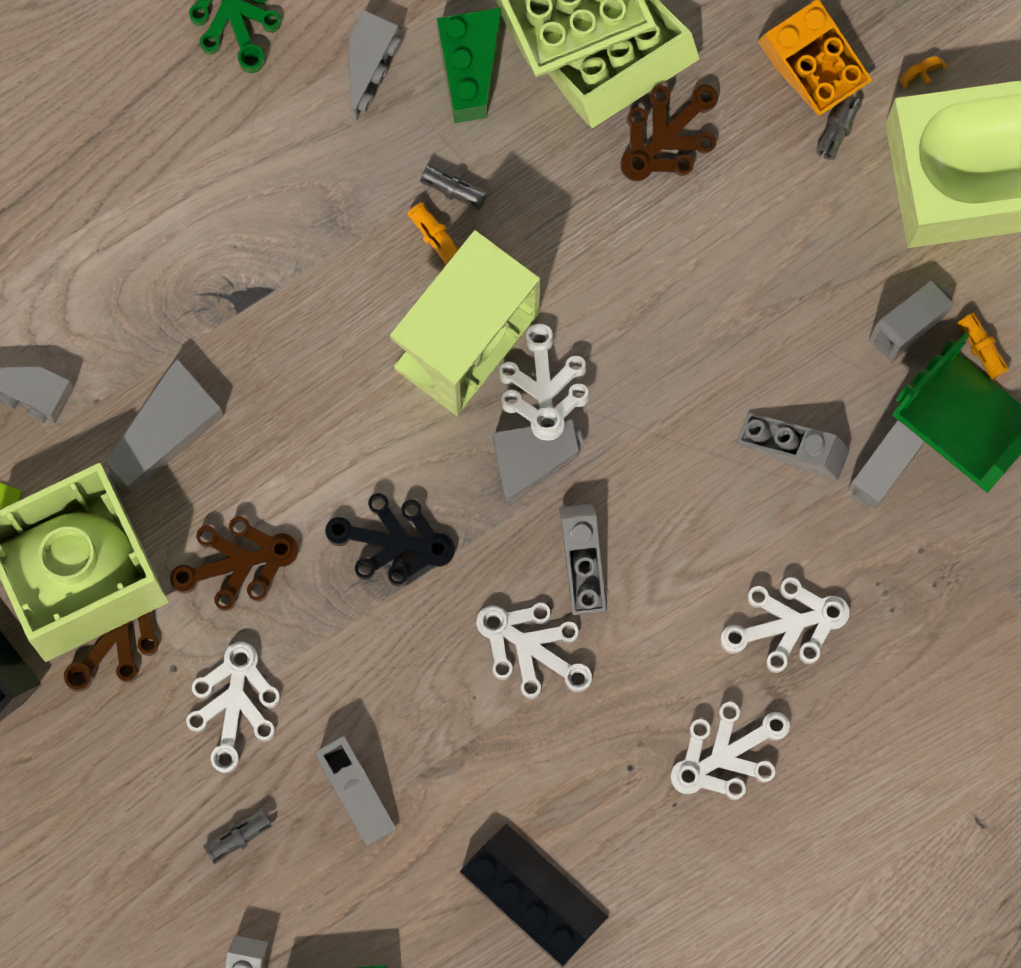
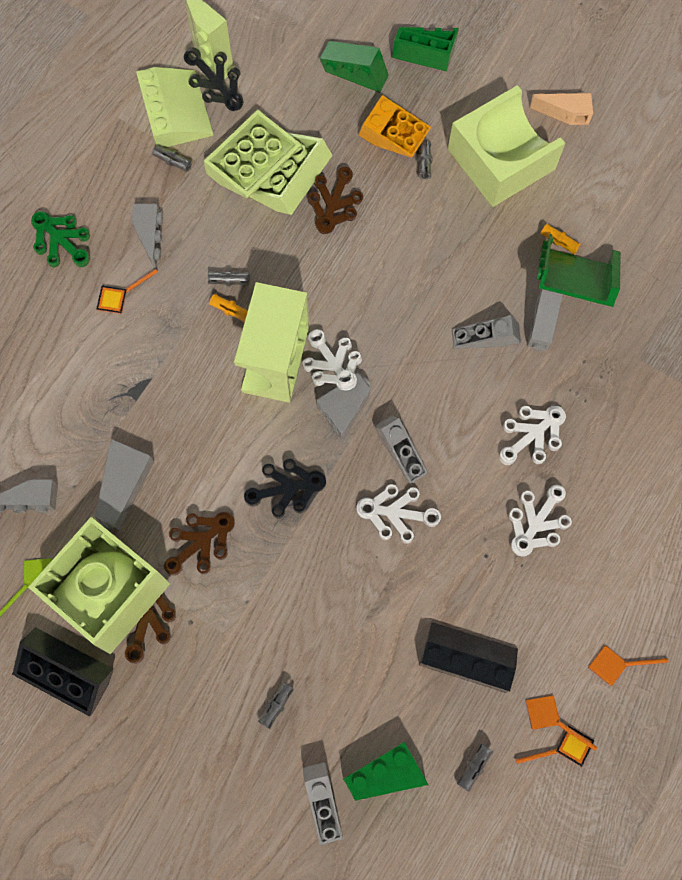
camera: 25 degrees left, 5 degrees down
(233, 701) = (236, 624): white plant -> none
(271, 141) = (112, 298): none -> piece
(355, 790) = (334, 644): light grey slope -> none
(468, 58) = (204, 207): green wedge -> none
(911, 320) = (516, 241): light grey slope -> none
(925, 66) = (453, 113): light orange piece -> none

